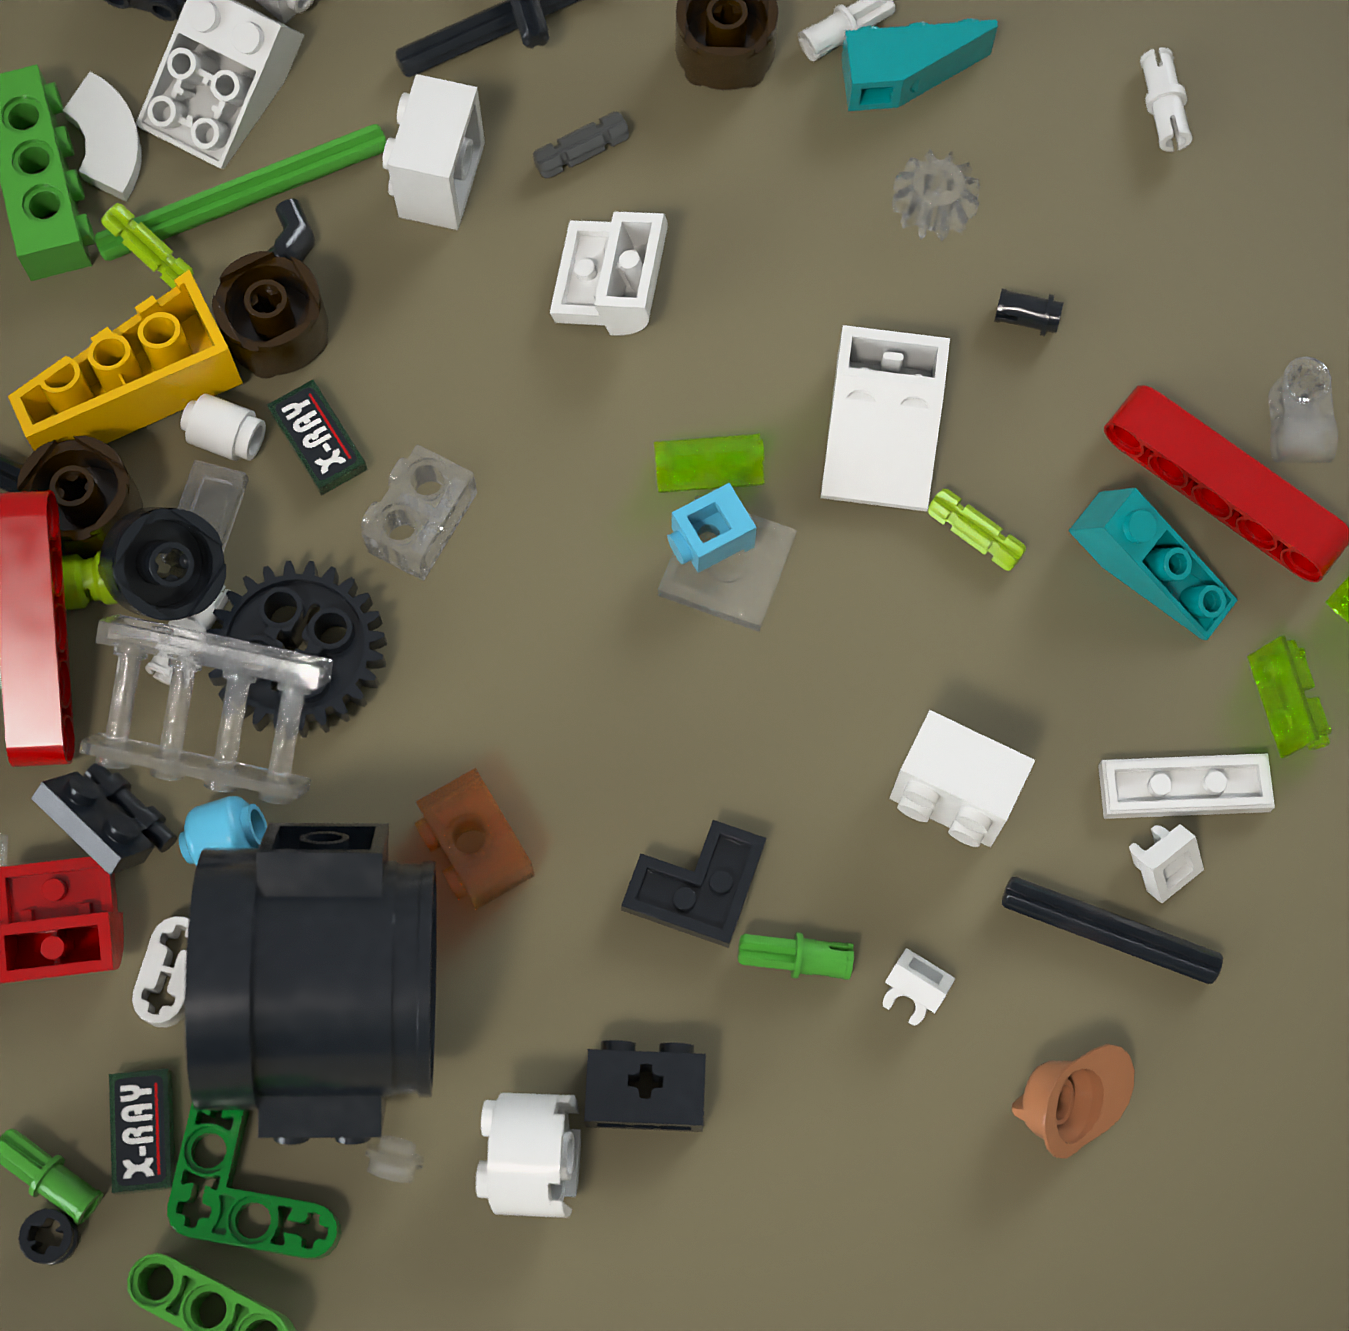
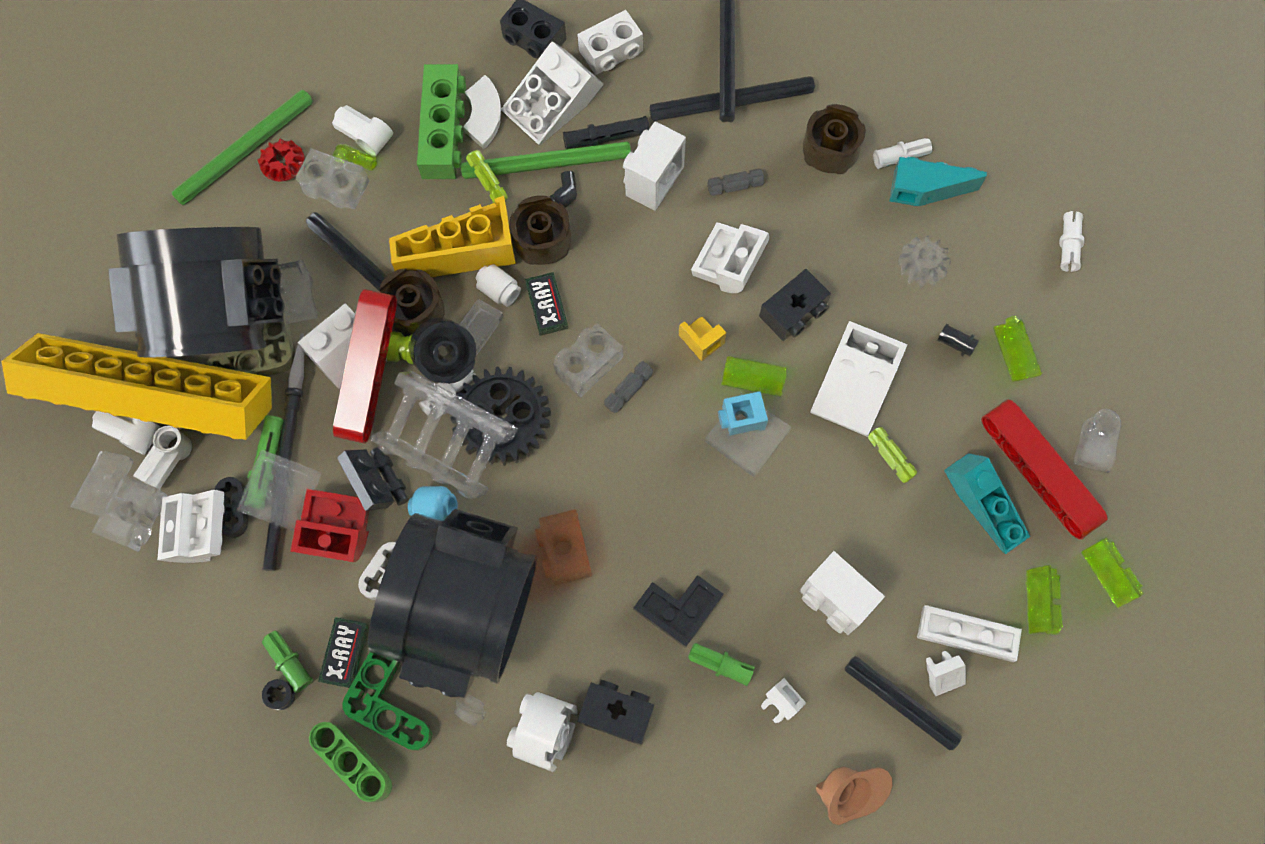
camera: 20 degrees right, 0 degrees up
(332, 118) = (603, 133): none -> black pin
(501, 540) = (628, 387): none -> dark grey axle
(602, 422) = (702, 337): none -> yellow panel
(743, 325) = (802, 292): none -> black brick
(1129, 300) = (1017, 349): none -> clear neon green hinge

